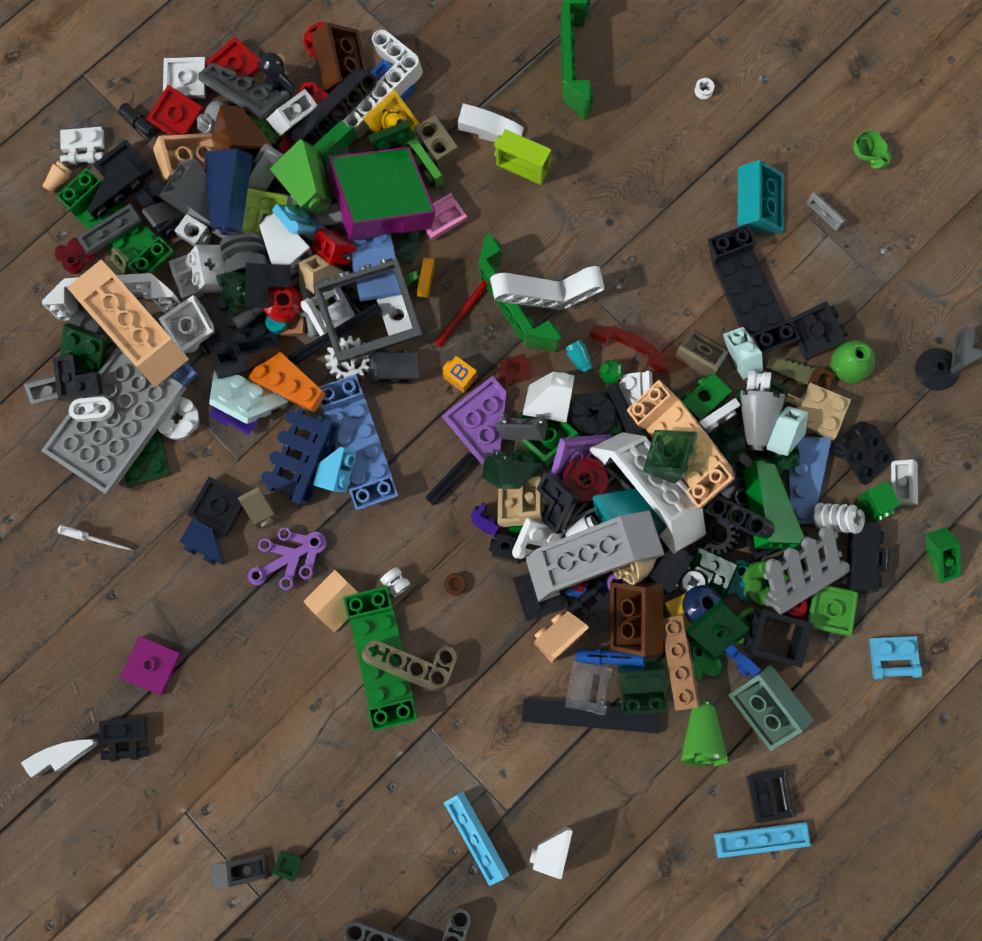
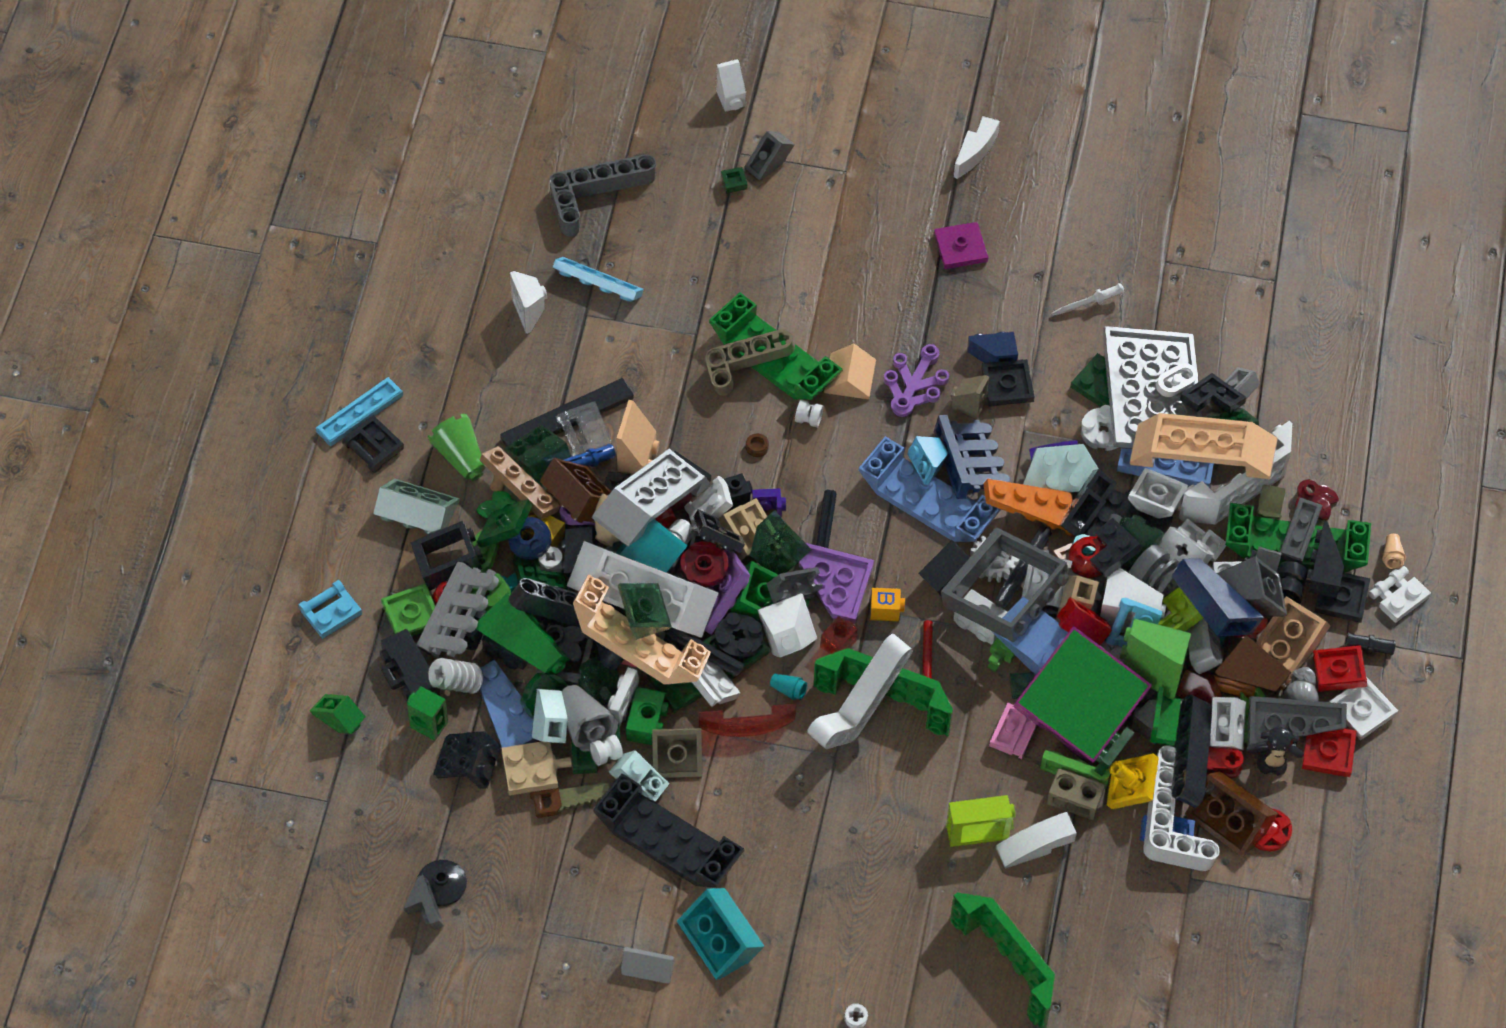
camera: 140 degrees right, 20 degrees down
(120, 731) = (939, 191): black plate -> none
(426, 277) = (983, 667): light orange beam -> none
(611, 371) = (750, 688): green piece -> none
(744, 664) = (476, 525): blue plate -> none
(819, 330) = (580, 840): black plate -> none
(848, 365) = (528, 835): bright green piece -> none
(905, 481) = (409, 759): white slope -> none

